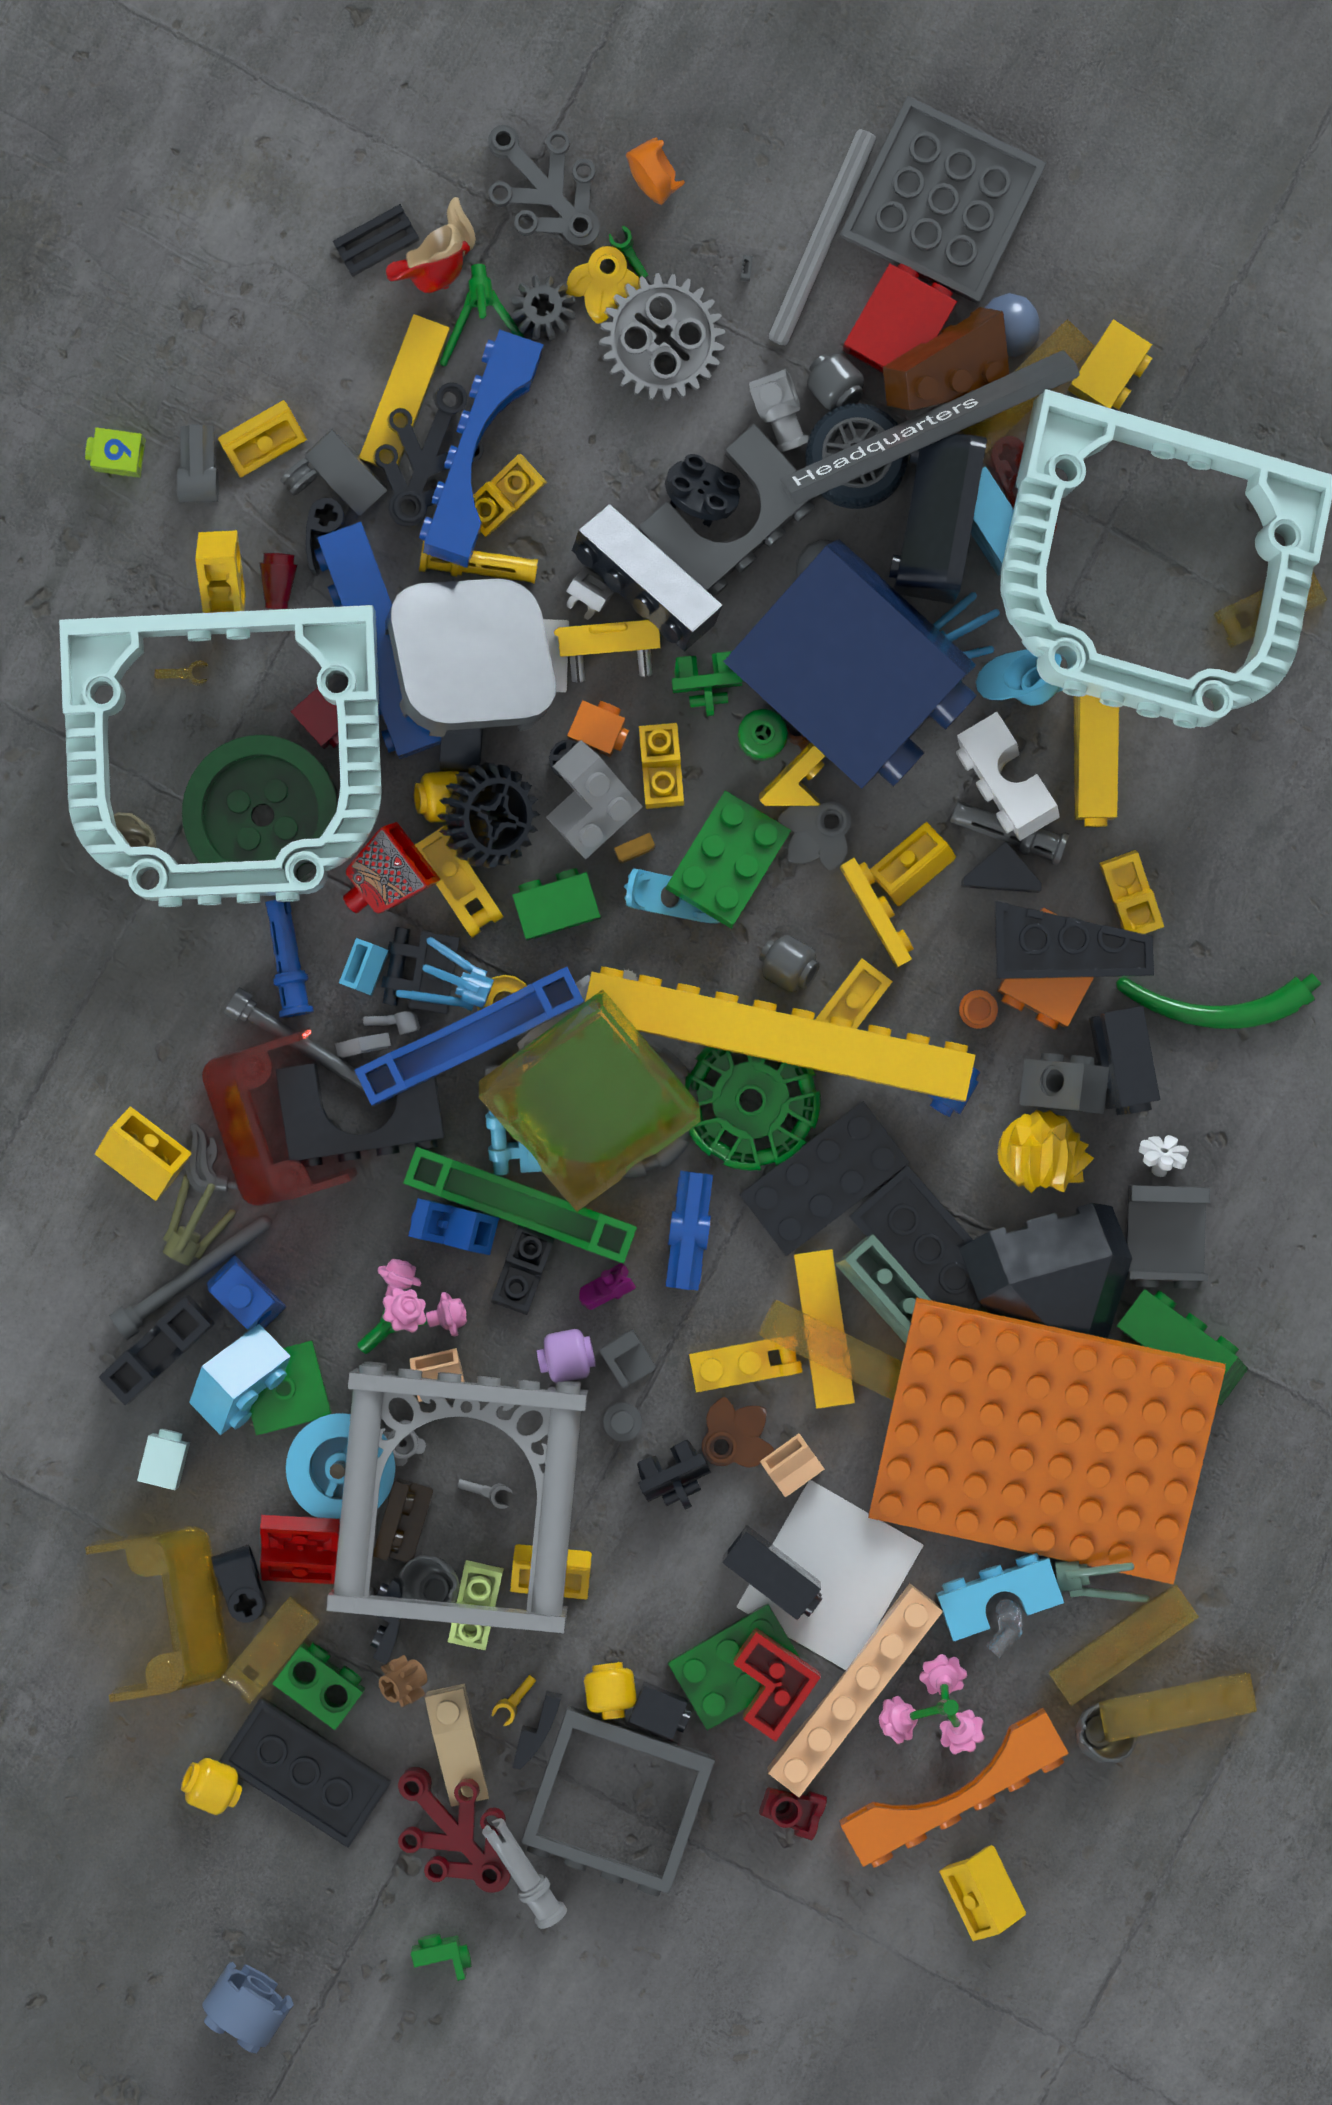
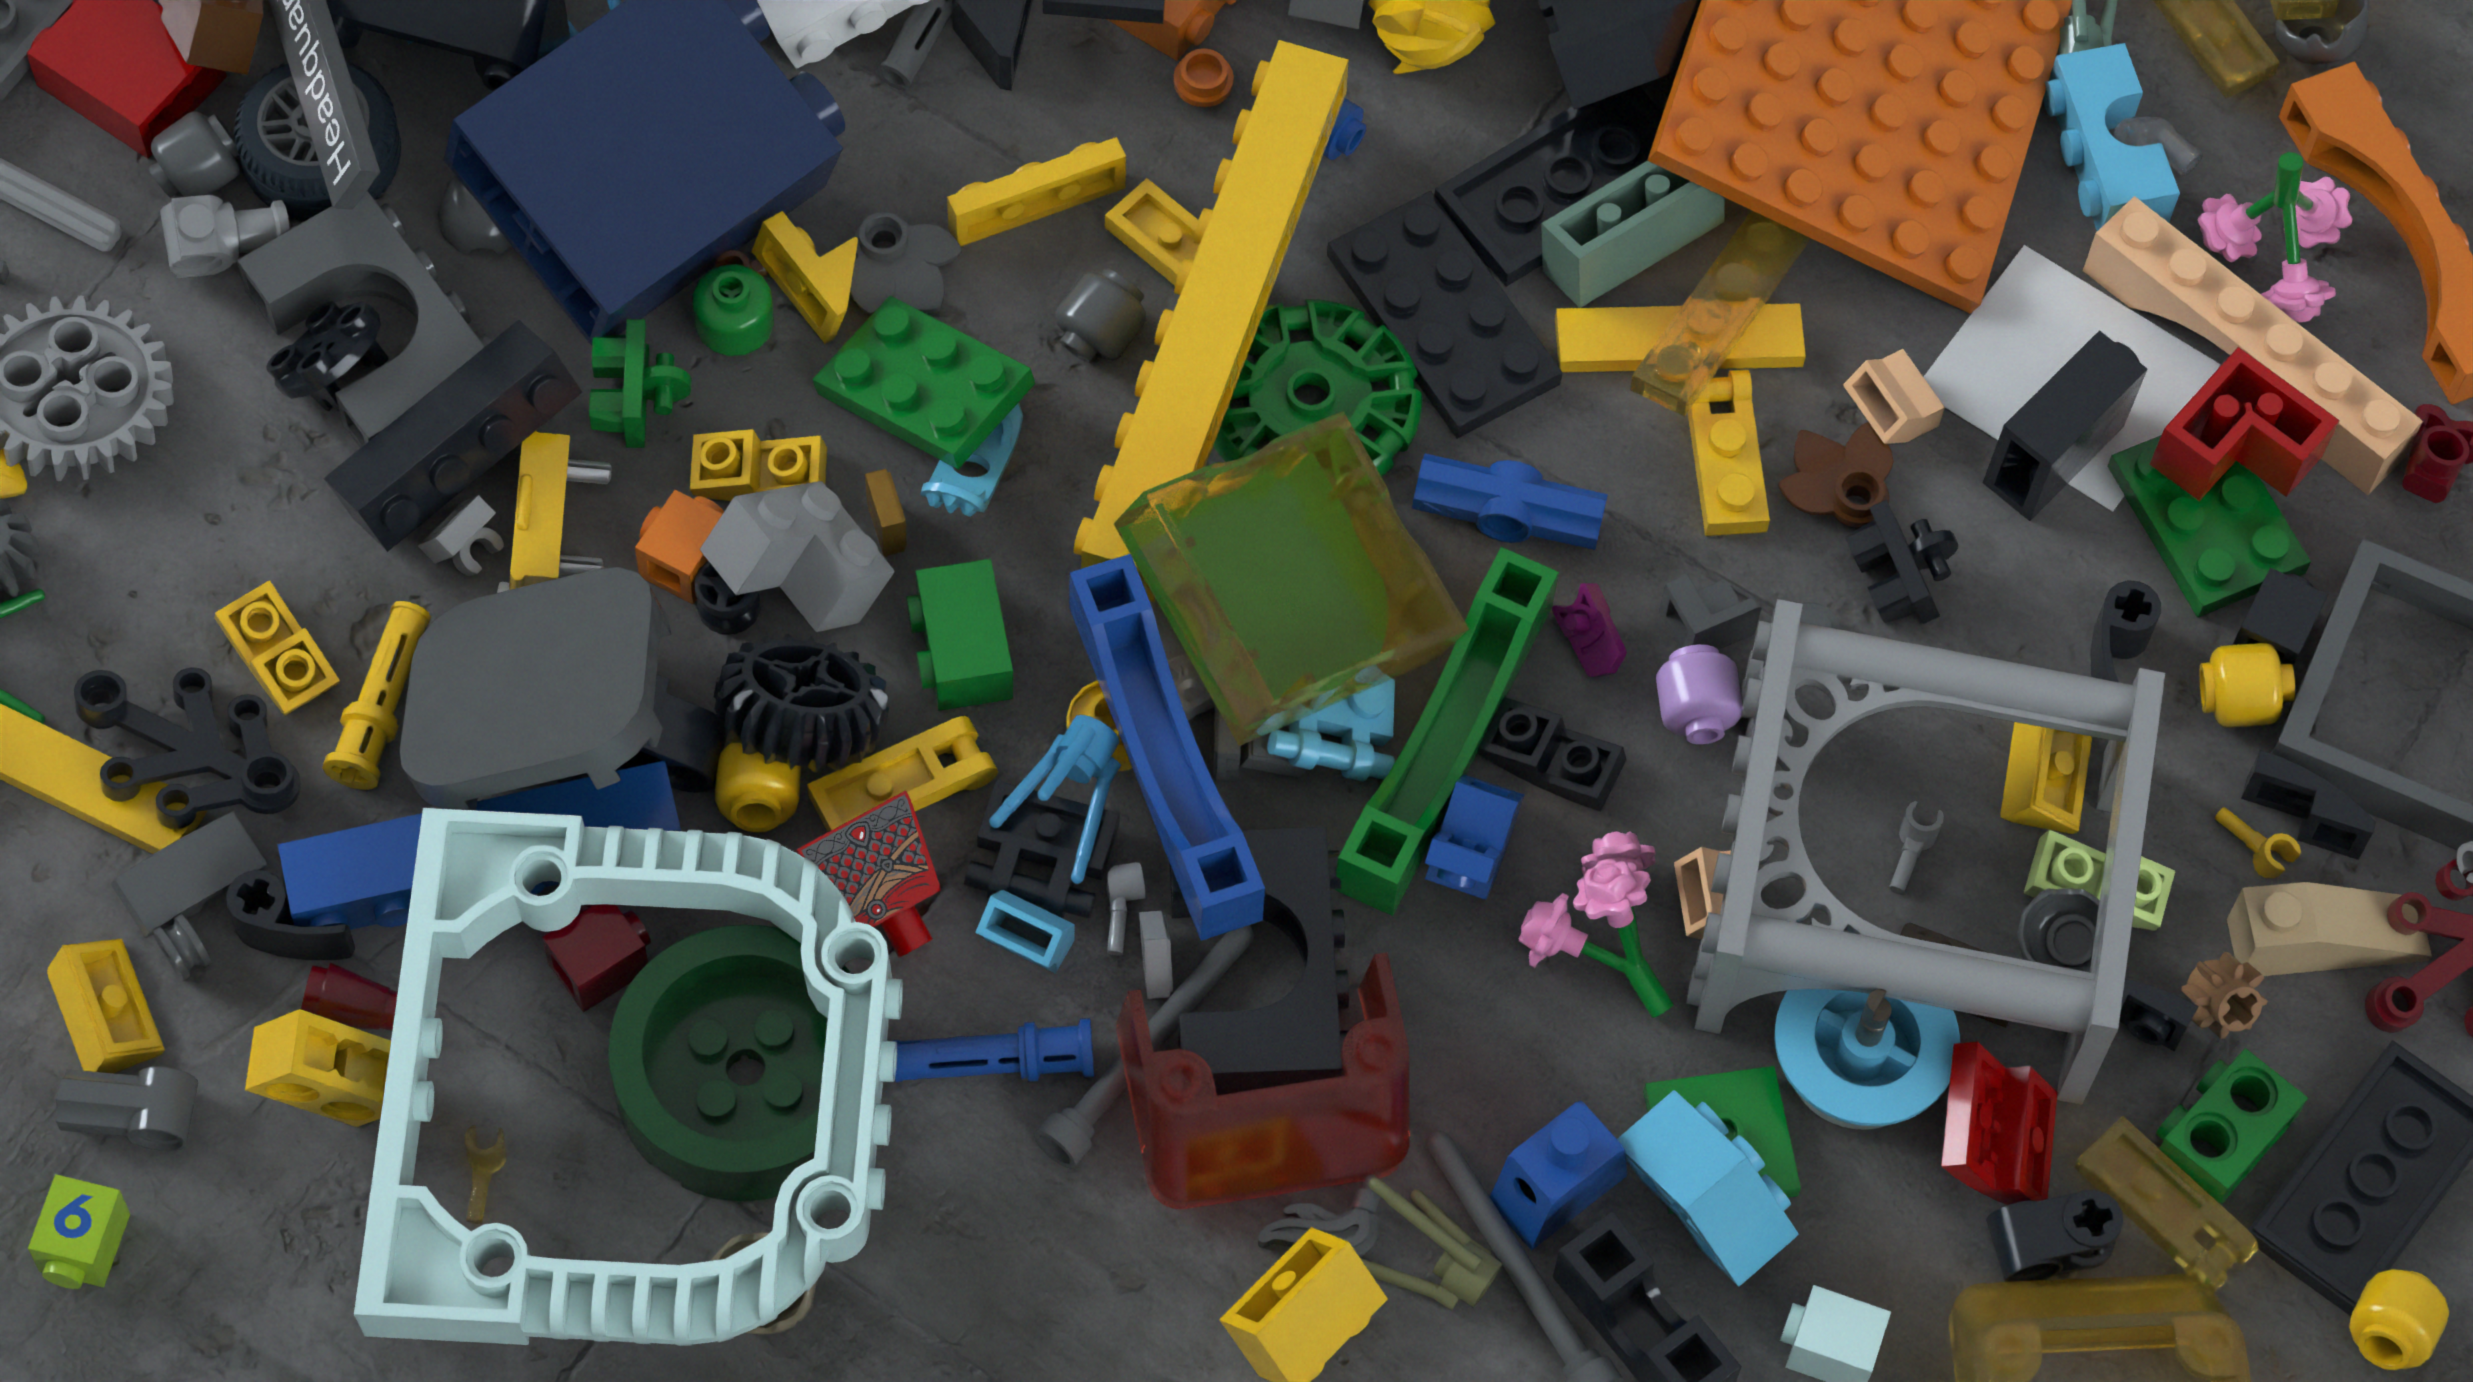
camera: 85 degrees left, 25 degrees down
(508, 375) = (303, 692): blue arch -> none
(641, 1605) = (2117, 636): none -> black panel
(912, 864) = (960, 138): yellow slope -> none

